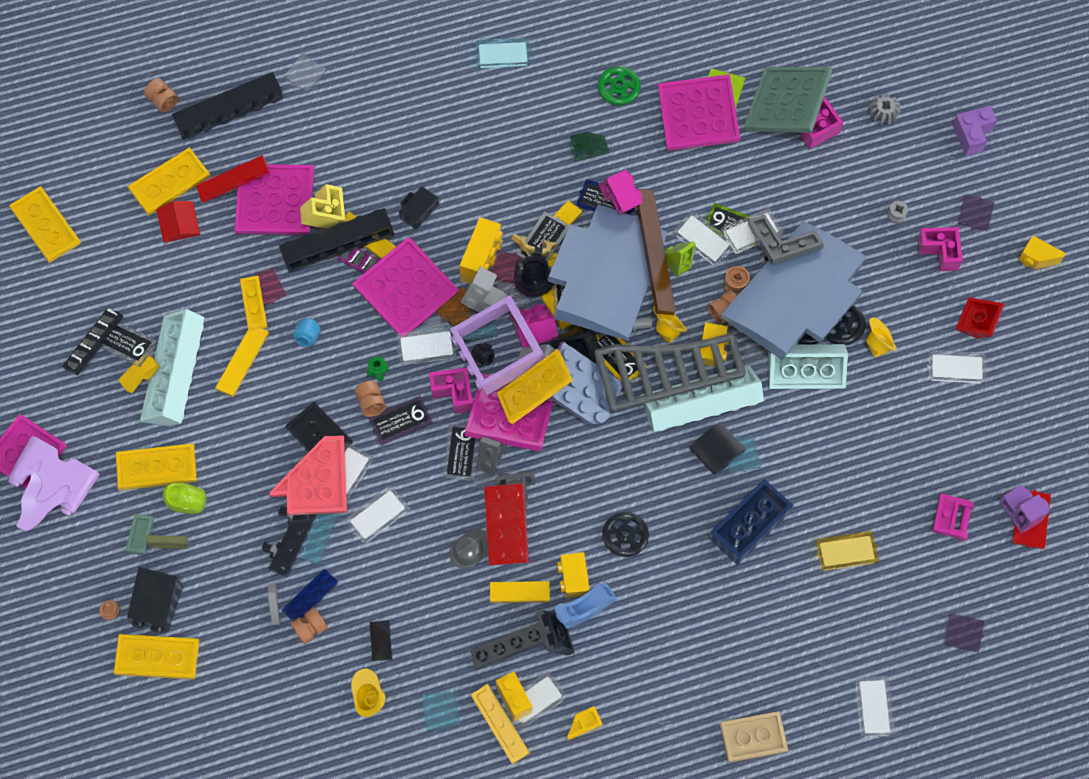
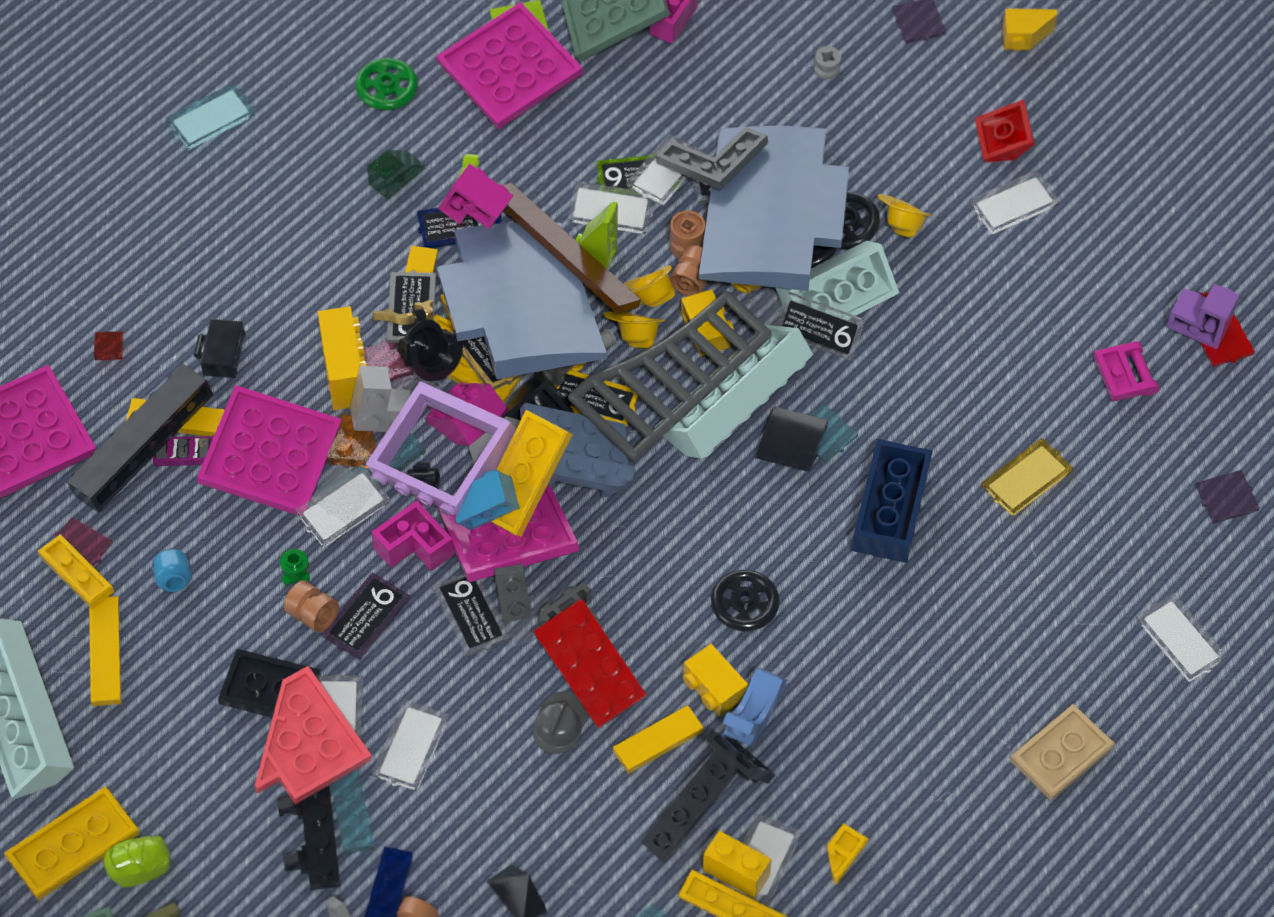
camera: 30 degrees left, 10 degrees down
(324, 209) = (99, 406): light yellow brick -> none
(356, 170) = (108, 345): none -> clear red tile
(504, 391) = (487, 500): none -> dark azure slope
(637, 164) = (469, 158): none -> lime hand
(692, 303) = (653, 288): none -> yellow piece
(779, 385) = (822, 325): none -> piece
(944, 243) = (910, 69): dark pink brick -> none

